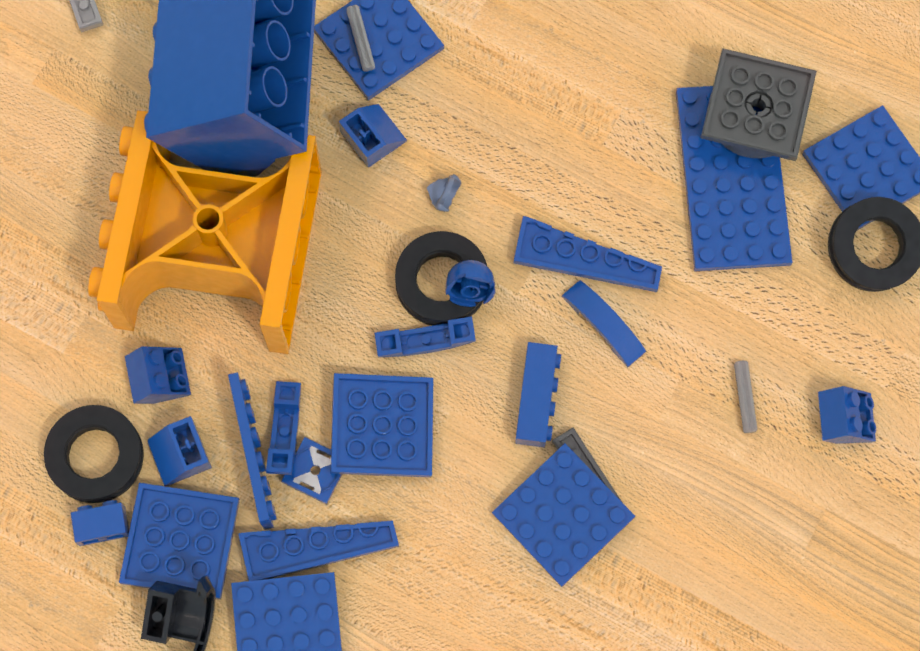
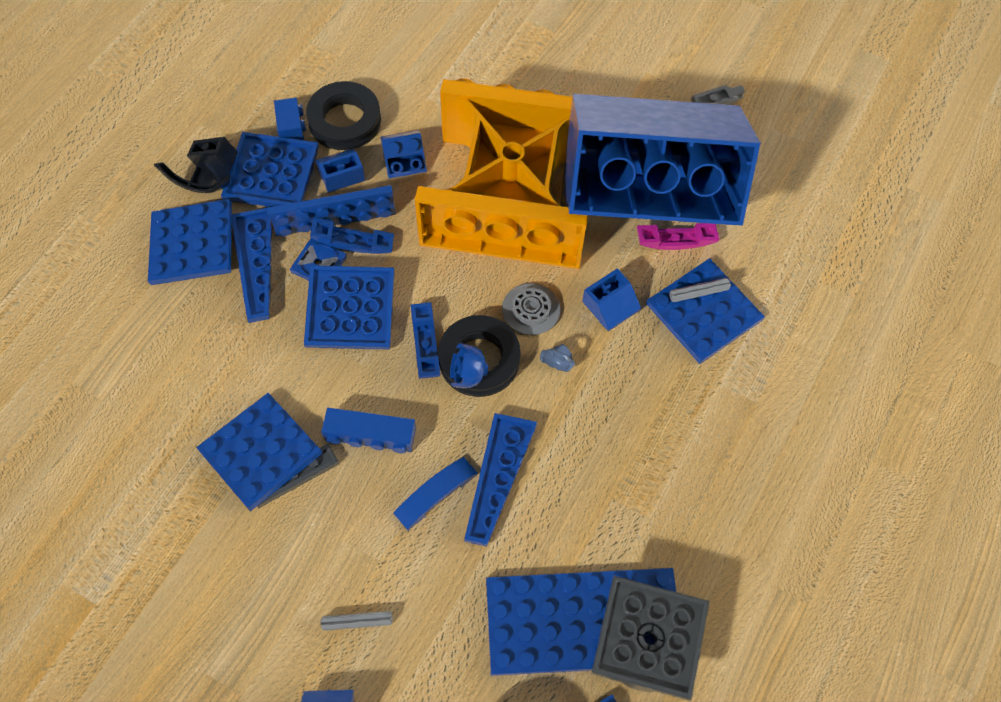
camera: 90 degrees right, 10 degrees down
(376, 223) = (531, 301): none -> light grey wheel

